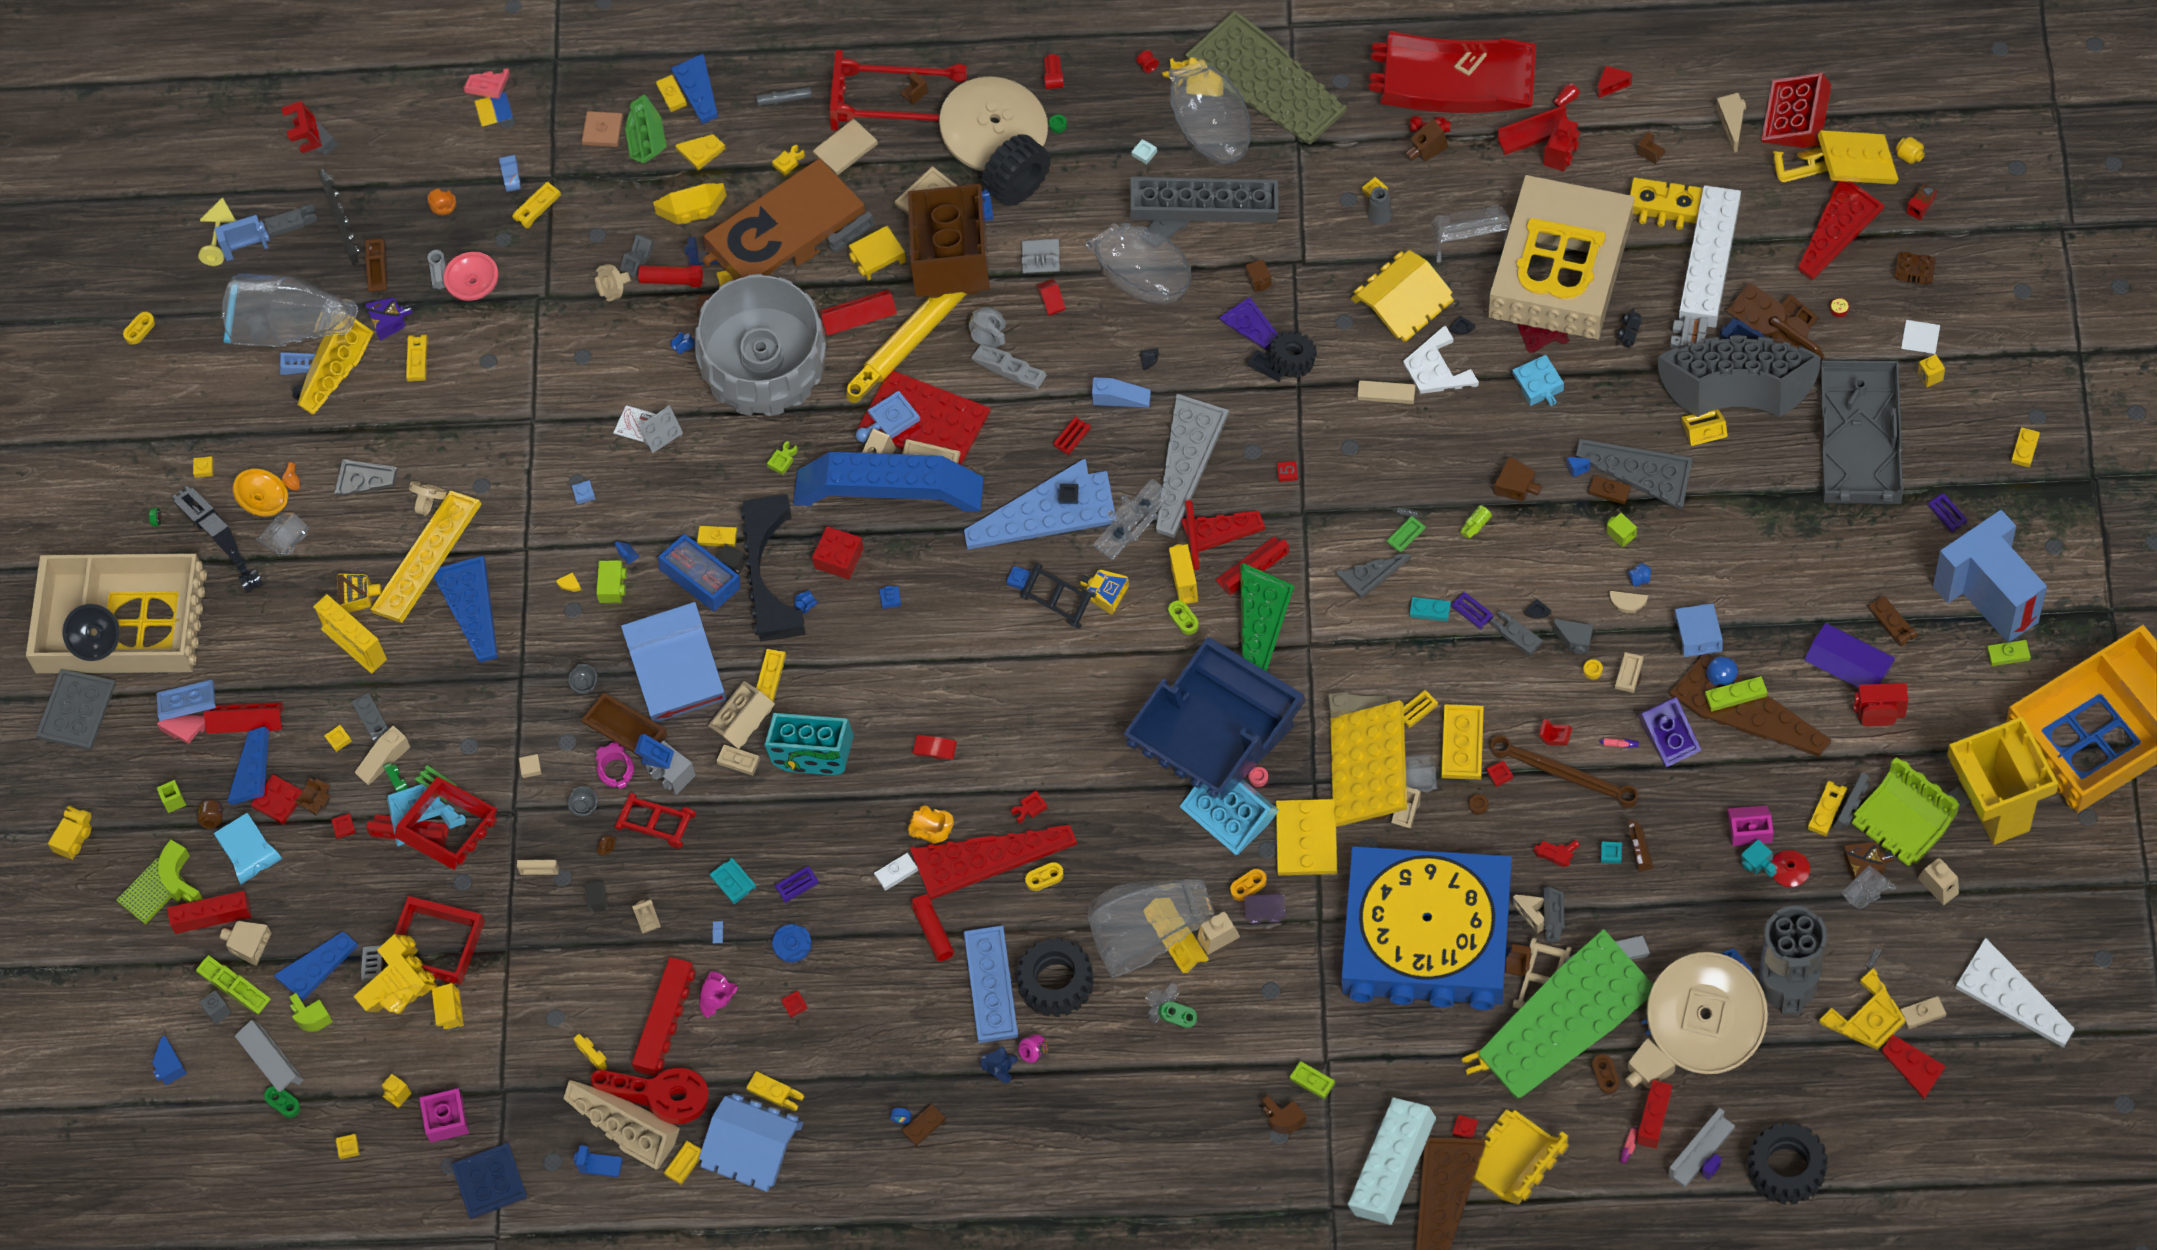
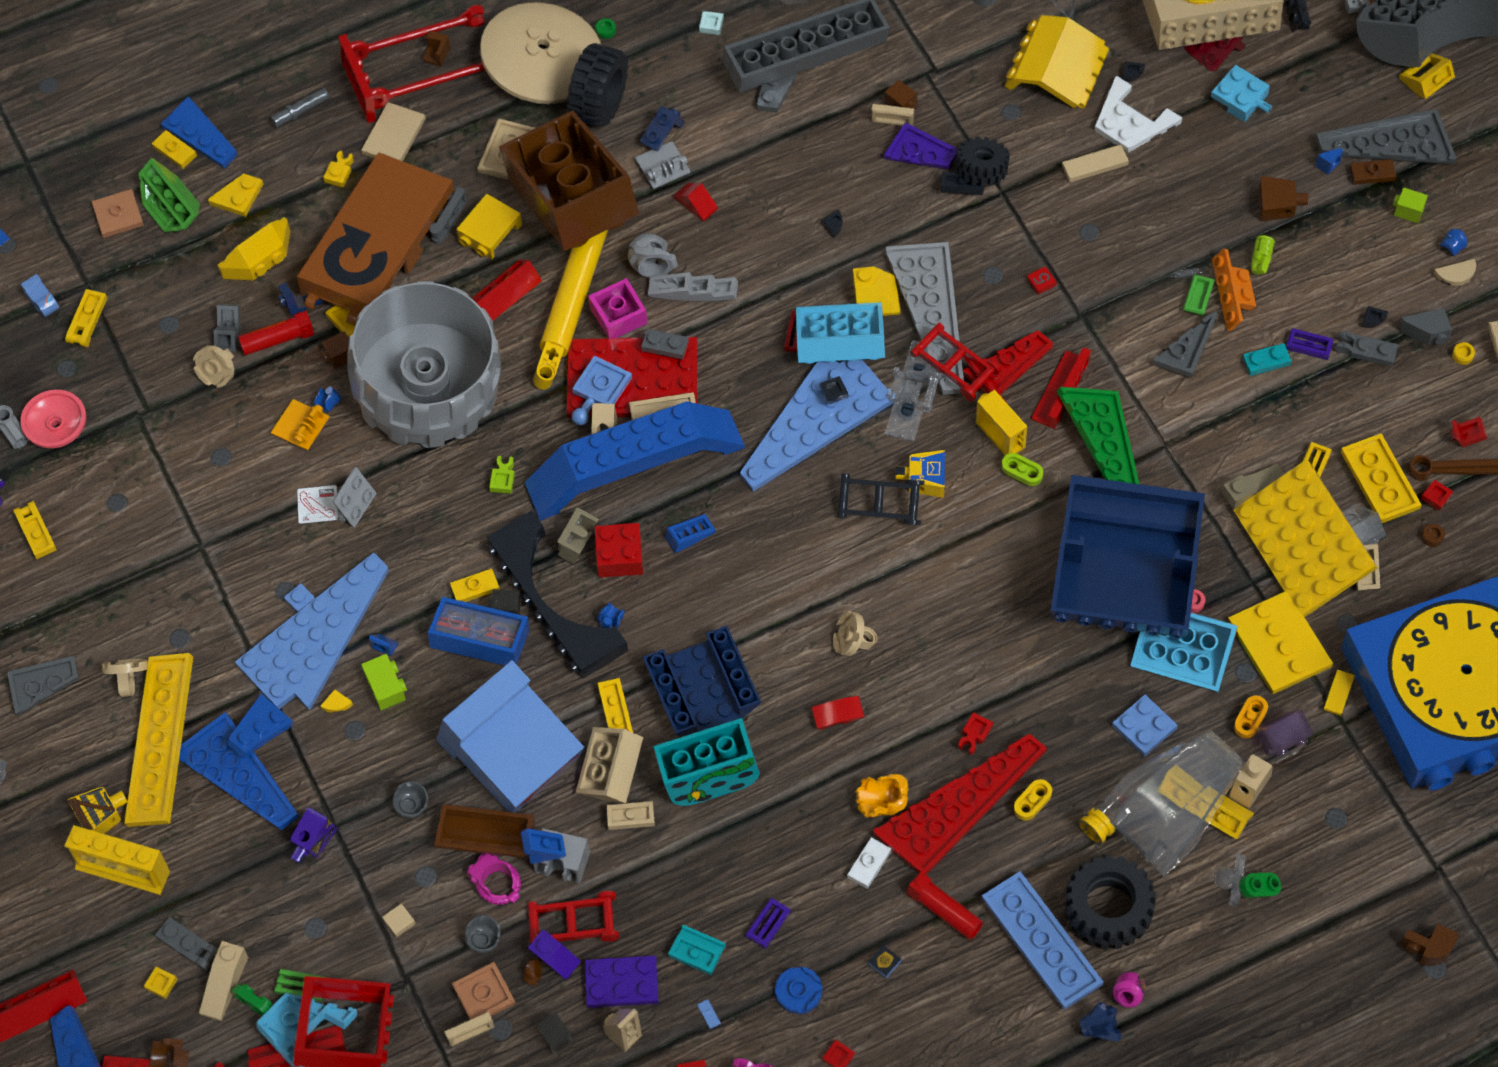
camera: 30 degrees left, 0 degrees up
(497, 675) = (311, 835): none -> dark purple torso
(501, 577) = (258, 727): none -> blue wing
(562, 844) = (483, 992): none -> nougat plate
(570, 531) = (308, 645): none -> medium blue wing
(625, 838) = (554, 954): none -> dark purple slope
(653, 355) = (300, 424): none -> light orange hinge
(666, 880) = (621, 981): none -> dark purple plate
(810, 527) = (576, 535): none -> dark tan window
(842, 682) = (703, 684): none -> dark blue slope
(866, 949) = (884, 961): none -> black tile
(890, 597) = (699, 574): blue tile -> none
(901, 566) = (678, 541): none -> blue slope
(939, 360) = (618, 309): none -> dark pink brick
(960, 403) = (665, 344): none -> dark grey plate
(976, 692) = (851, 634): none -> tan tile
(1018, 578) = (826, 499): blue plate -> none
(1054, 223) = (661, 127): none -> dark blue bracket
(1079, 916) = (1096, 826): none -> yellow wheel
(1099, 449) = (840, 332): none -> medium azure slope
(1119, 393) = (823, 269): medium blue slope -> none
(1142, 263) = (782, 129): clear windscreen -> none
(1148, 428) = (875, 286): none -> yellow slope
(1163, 857) = (1144, 725): none -> medium blue plate
(1172, 537) = (968, 391): none -> red piece
(1244, 287) = (892, 115): none -> tan tile
(1312, 1080) = (1438, 893): lime plate -> none
(1329, 895) = (1339, 692): none -> yellow piece
(1437, 542) = (1233, 288): none -> orange bracket

